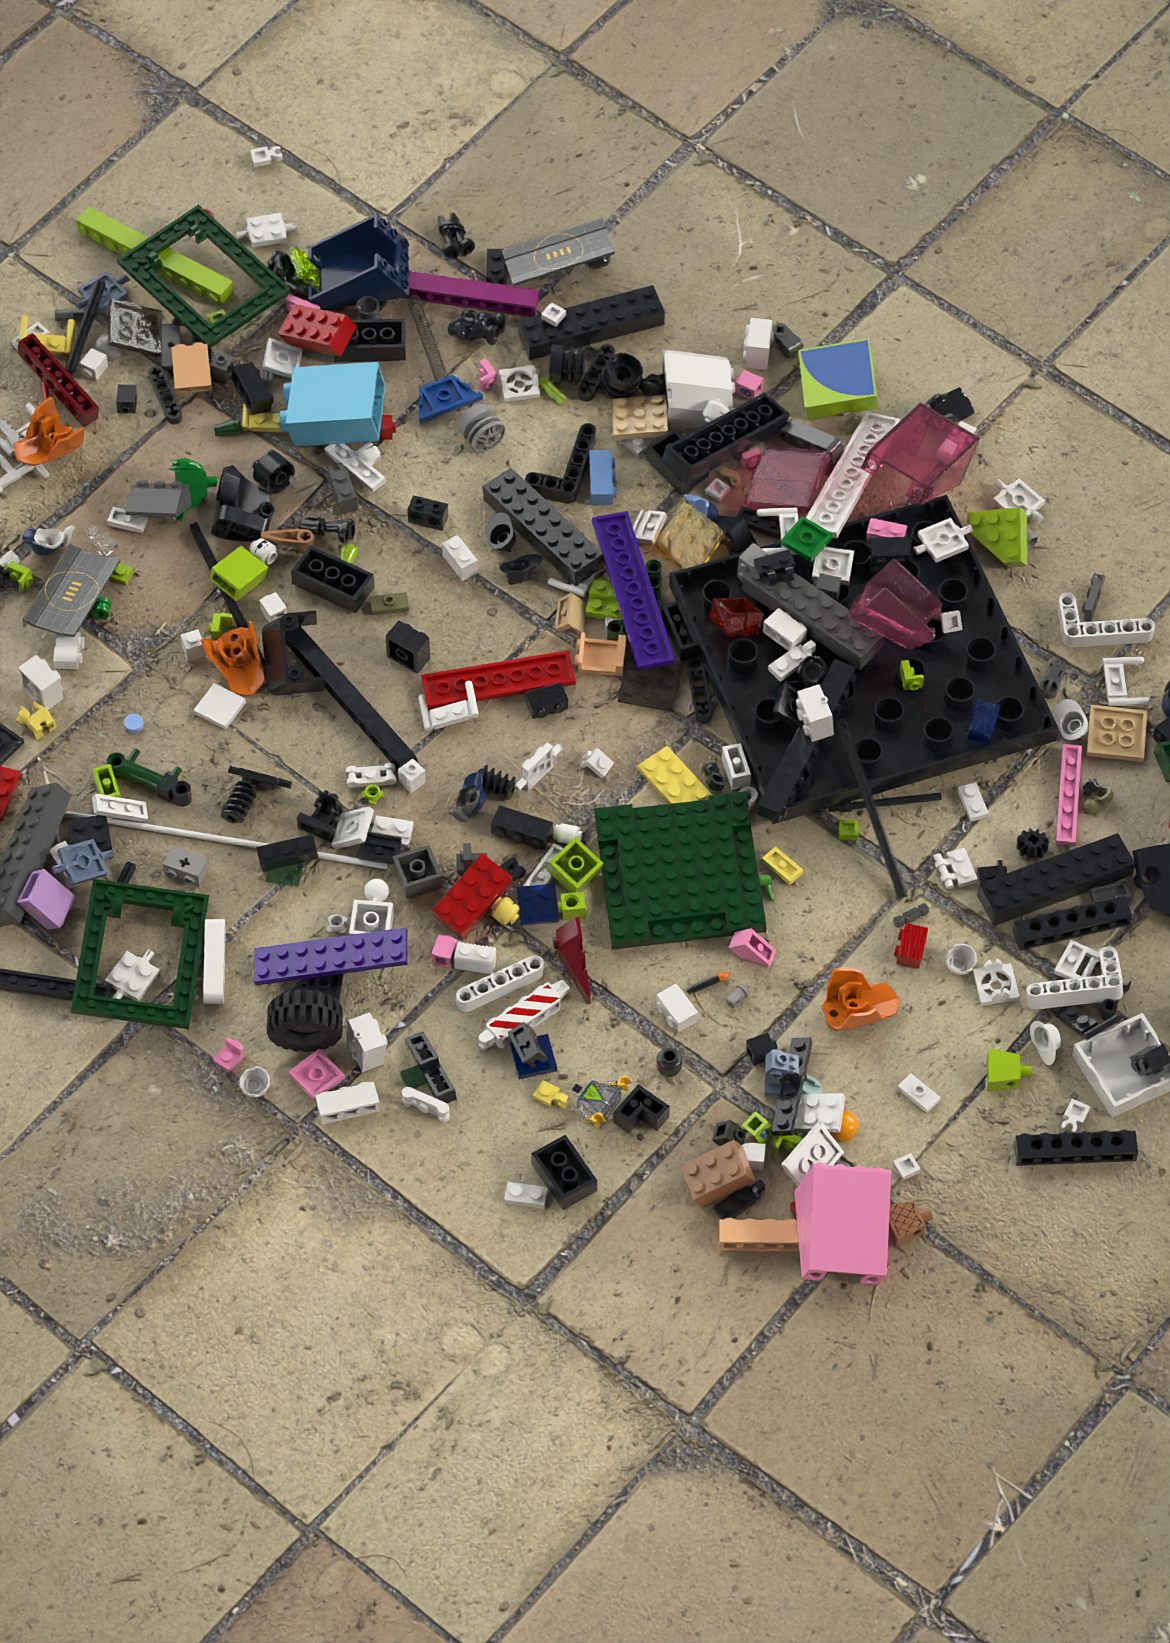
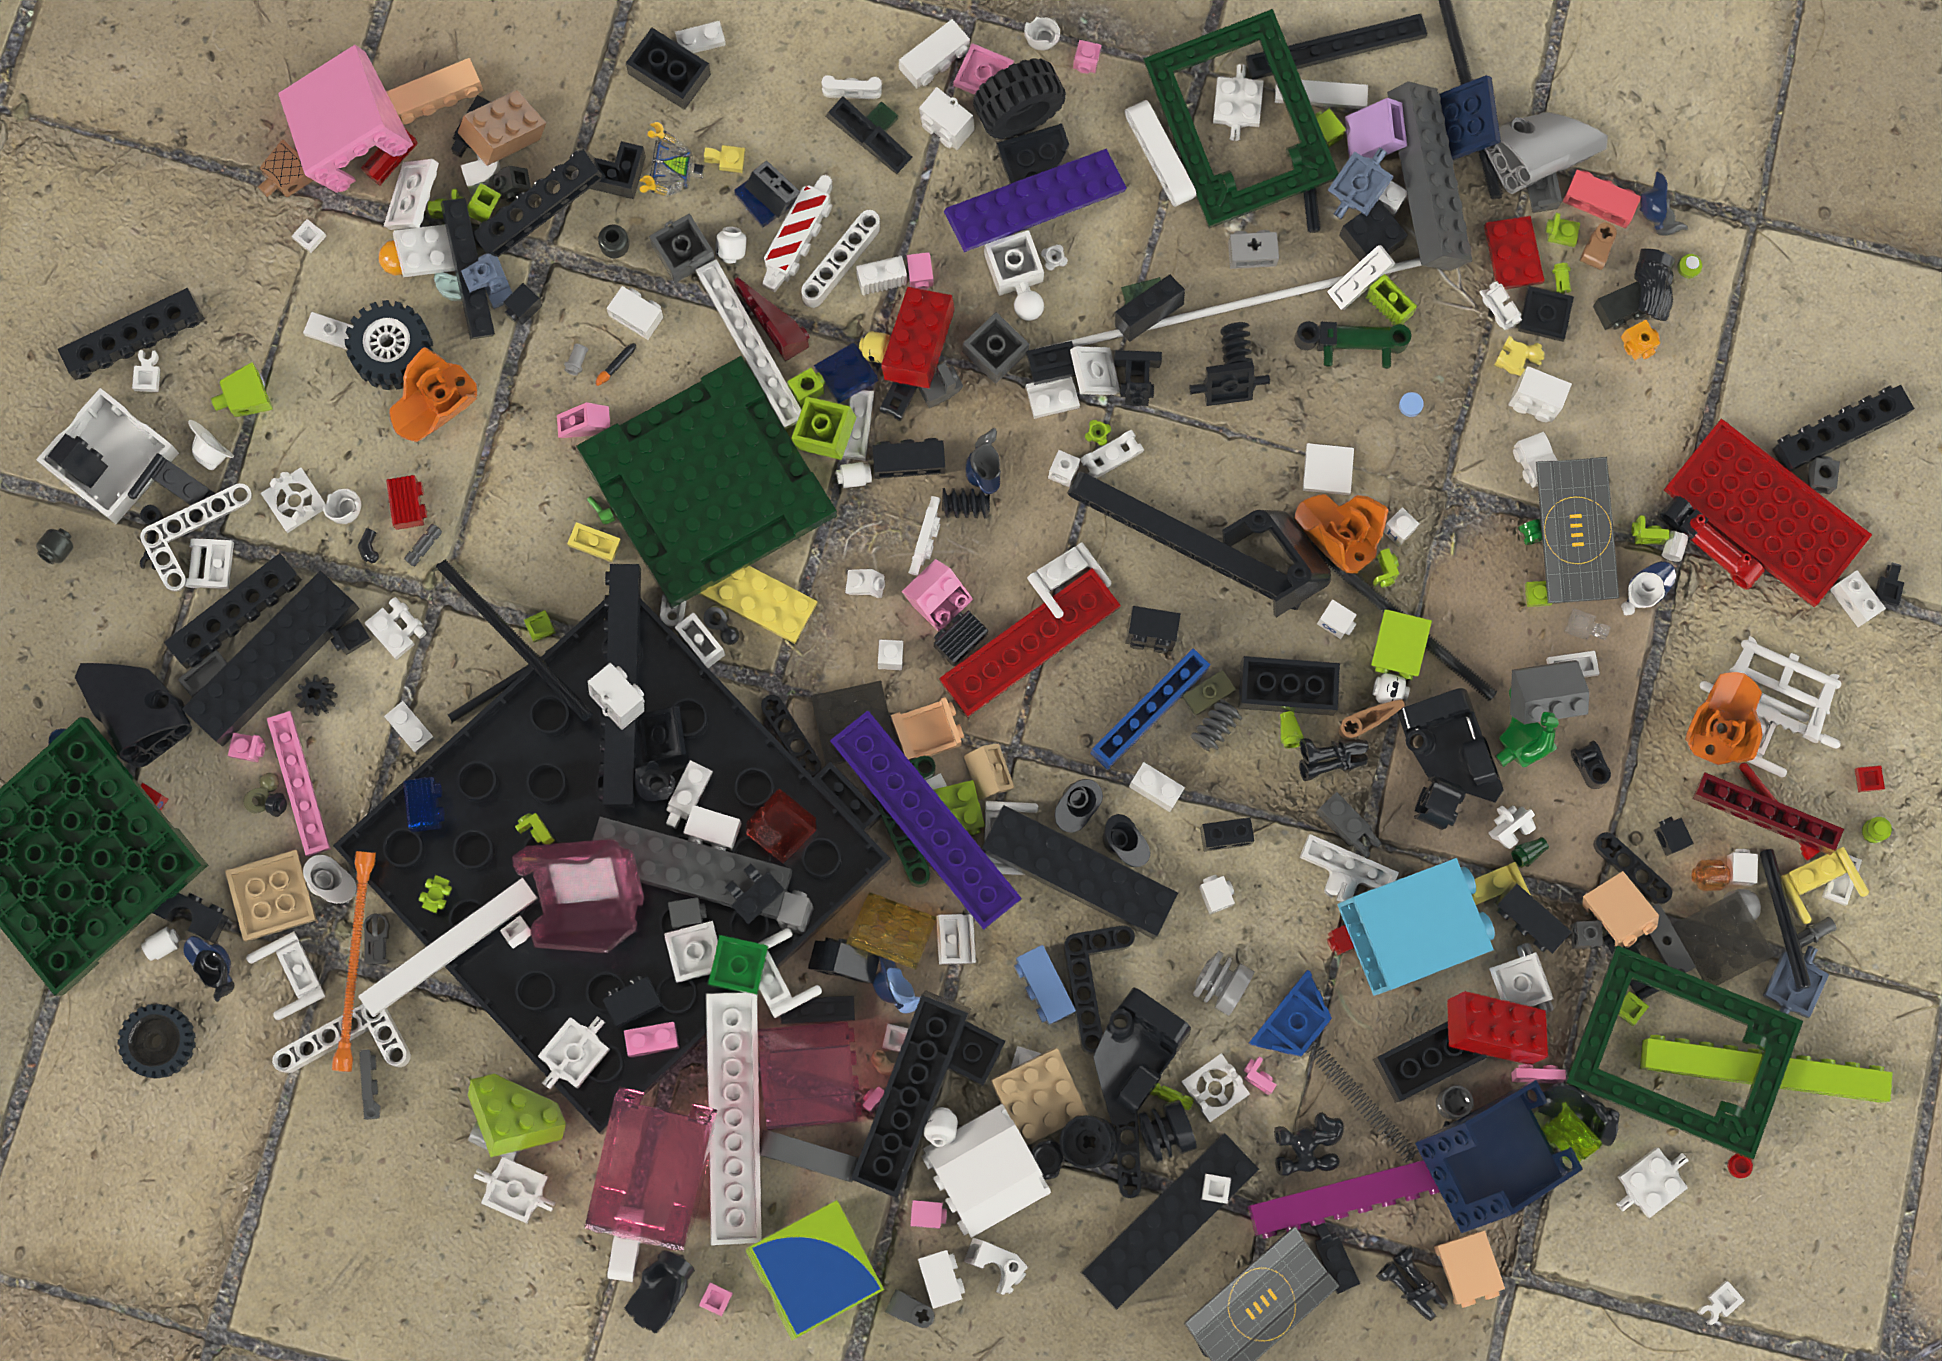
camera: 150 degrees right, 20 degrees up
(29, 761) = (1505, 315): none -> white hinge
(56, 953) = (1333, 94): none -> white tile
(76, 925) = (1330, 126): none -> lime brick
(116, 368) = (1711, 875): none -> clear orange head
(153, 460) = (1590, 763): none -> black piece
(230, 446) = (1509, 822): none -> white hips
(396, 576) = (1216, 725): none -> dark grey piece
(415, 227) = (1470, 1268): none -> light nougat panel
(439, 601) = (1150, 709): none -> blue brick
(454, 483) = (1217, 893): none -> white brick
(551, 730) = (937, 594): none -> bright pink slope
(569, 407) = (1136, 1055): none -> black panel
(579, 1024) = (730, 244): none -> white head
(599, 954) = (750, 343): none -> white plate
(602, 708) = (890, 654): none -> white brick
(618, 1034) = (681, 247): none -> dark grey brick
(705, 1098) = (551, 204): none -> black brick
(714, 337) = (983, 1253): none -> white tile
(871, 1039) = (360, 345): none -> black wheel
(911, 394) = (716, 1299): none -> bright pink plate
(955, 930) = (365, 546): none -> black arm
(996, 669) = (437, 890): none -> lime piece
(1003, 634) = (447, 947): none -> white tile
(1040, 703) = (343, 1057): none -> orange hose
(1095, 831) = (246, 747): none -> bright pink bracket

